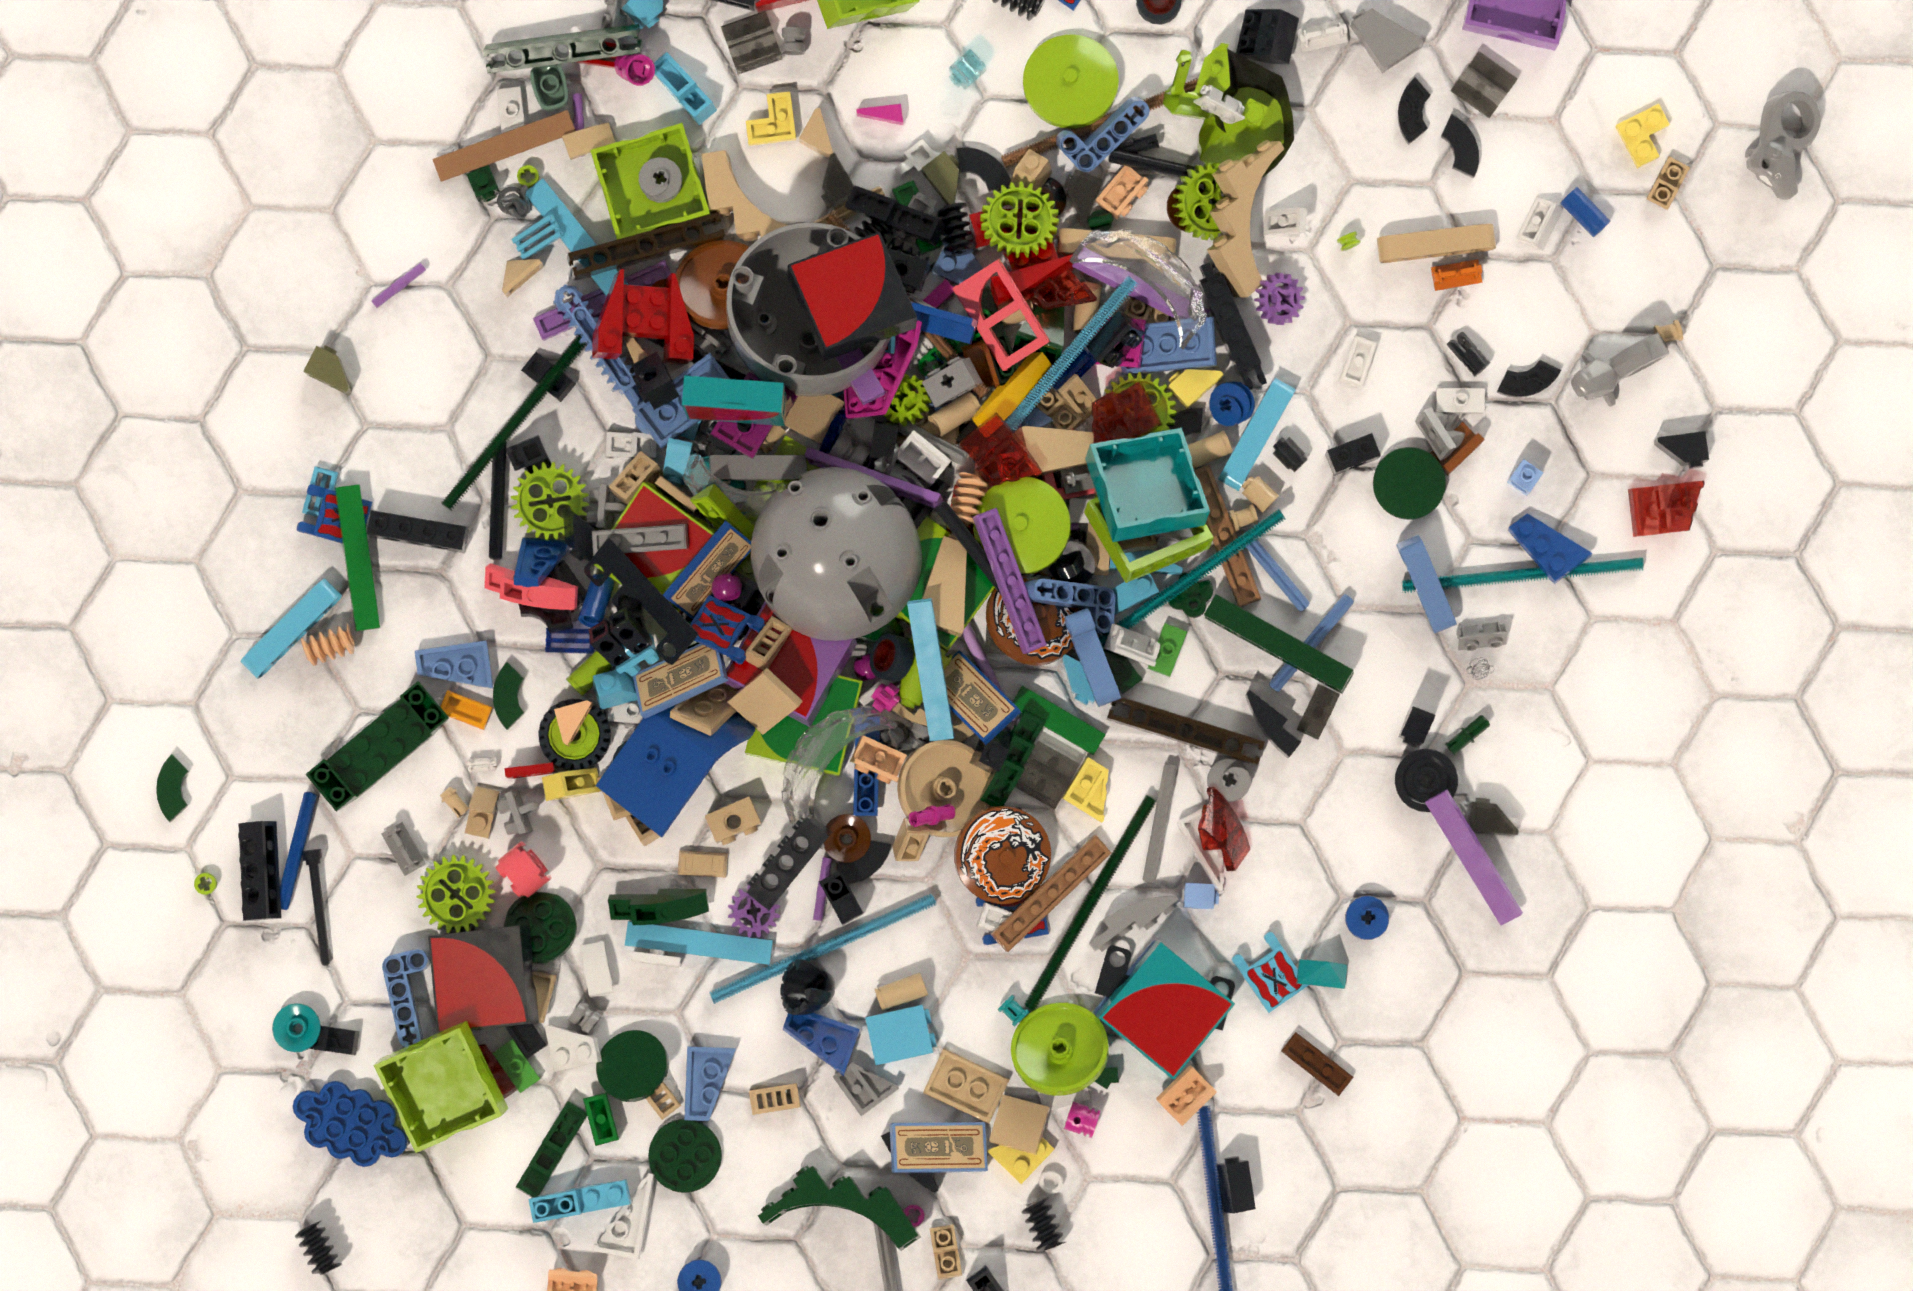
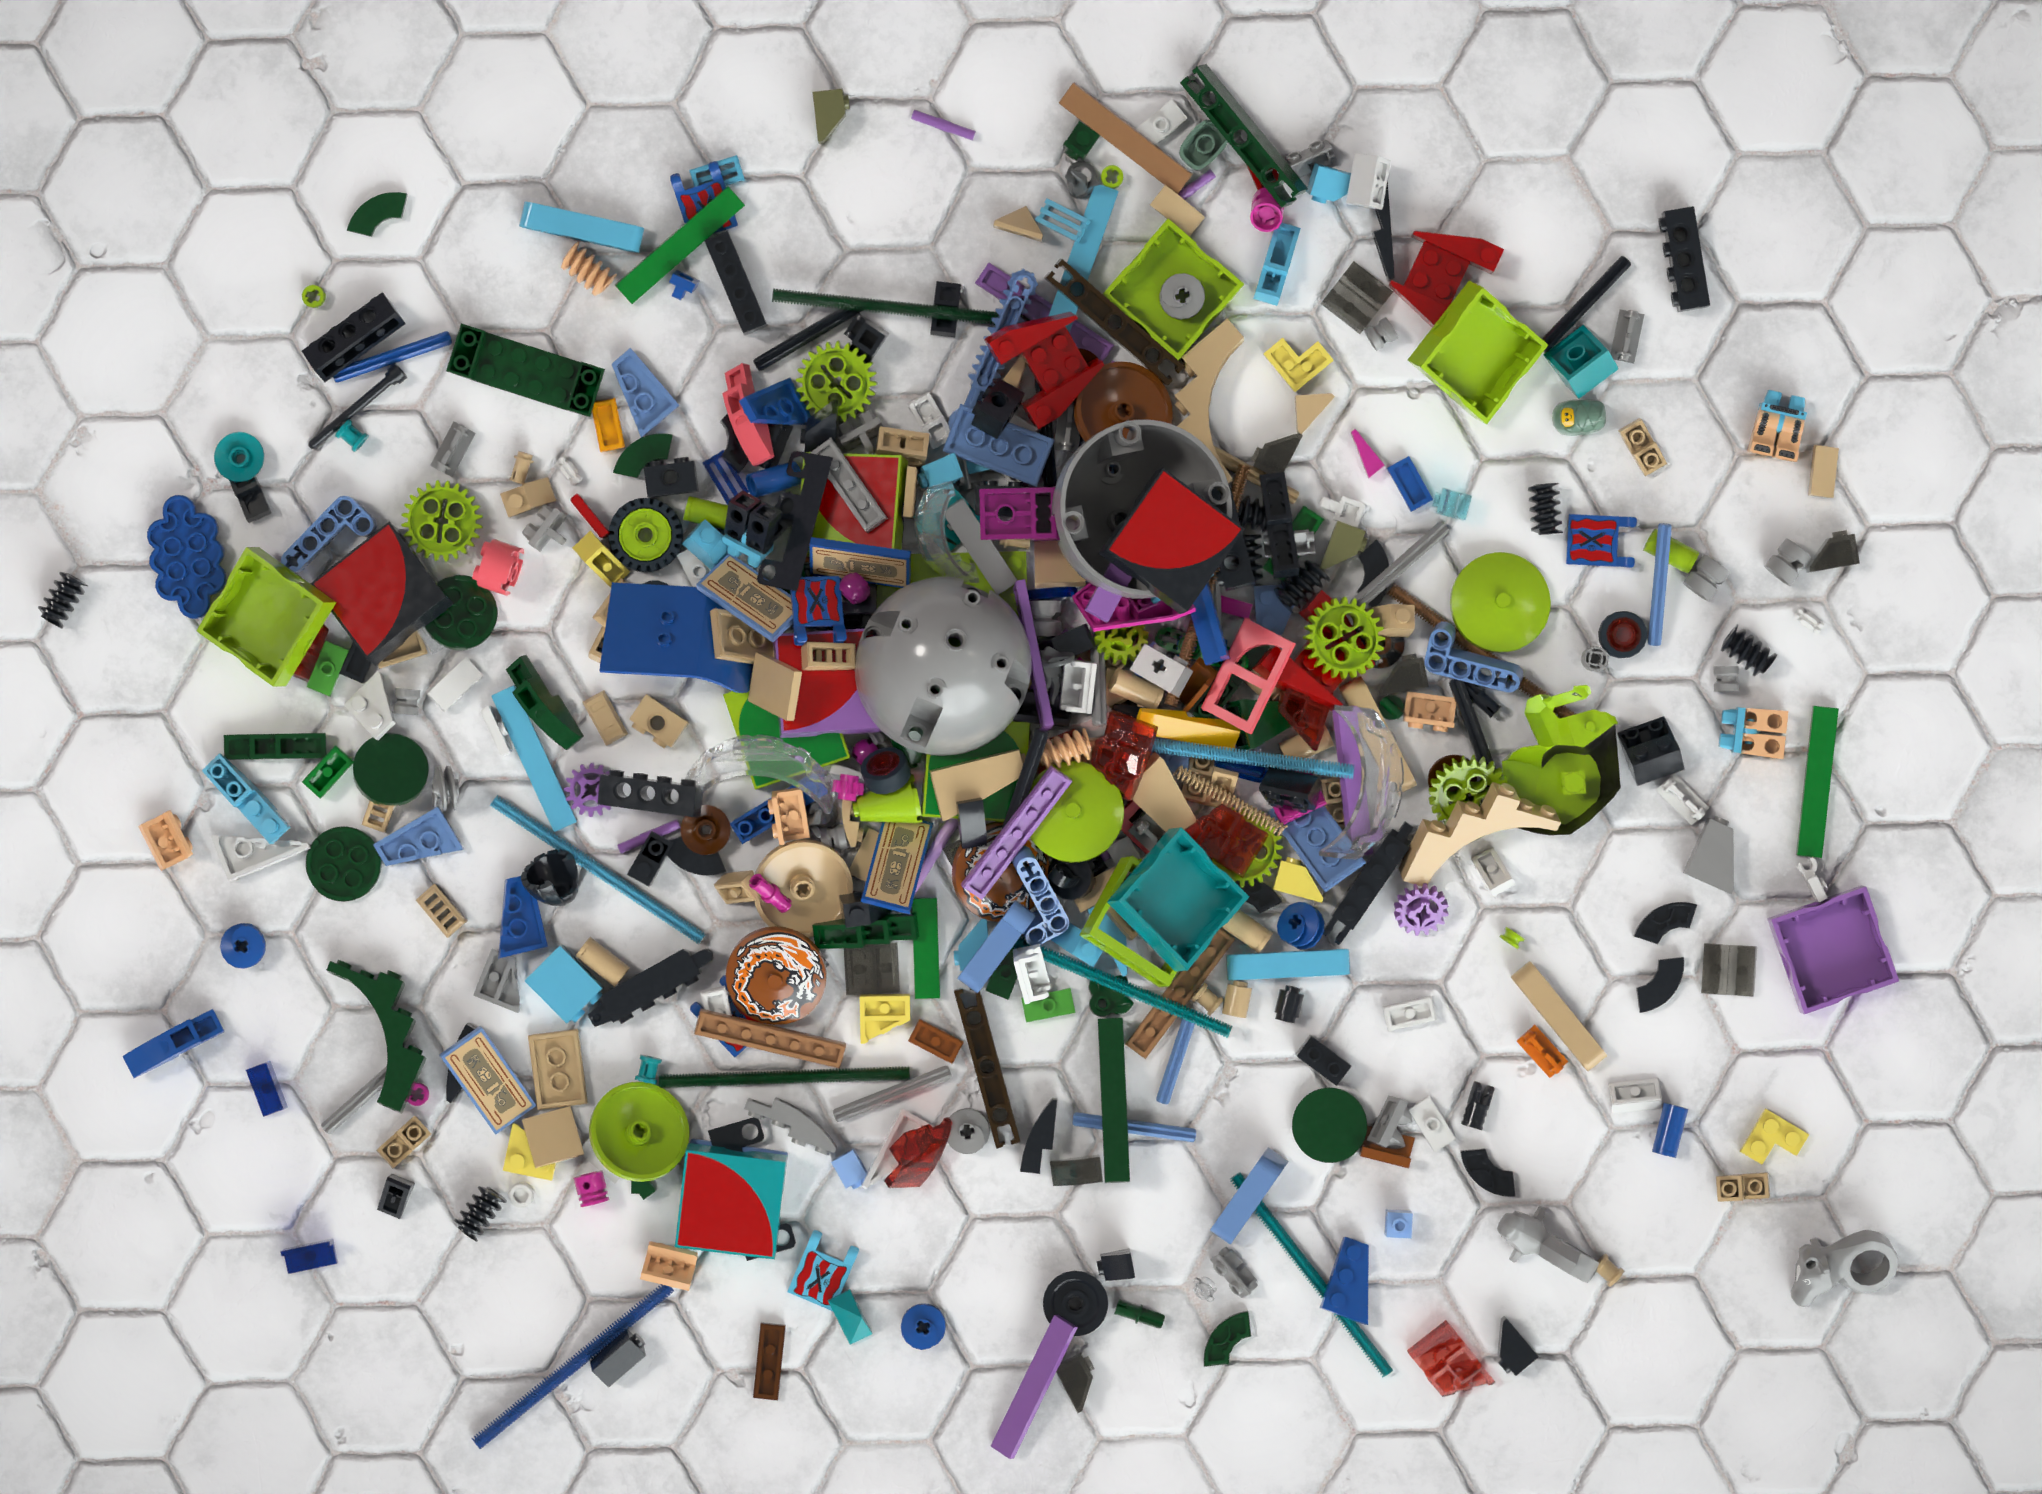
camera: 55 degrees right, 5 degrees up
(339, 924) = (351, 435): none -> teal bush
(390, 574) = (683, 284): none -> blue tile
(542, 699) = (685, 483): none -> black brick
(571, 718) = (654, 524): light nougat slope -> none
(673, 1030) = (445, 787): none -> light grey piece
(719, 508) = (919, 540): lime slope -> none
(734, 400) = (1016, 495): teal tile -> none
(928, 94) = (1409, 483): none -> blue tile
(930, 669) = (895, 812): medium azure tile -> none
(944, 965) = (650, 984): none -> black hinge
(979, 611) = (971, 823): none -> slope
(989, 138) = (1402, 563): none -> light grey axle
(1092, 395) = (1229, 800): none -> tan piece
(1139, 760) = (935, 1041): none -> dark orange plate
(1161, 37) = (1591, 656): none -> light grey wheel
(1228, 110) = (1560, 760): white hinge -> none
(1531, 678) = (1224, 1338): none -> dark green tile

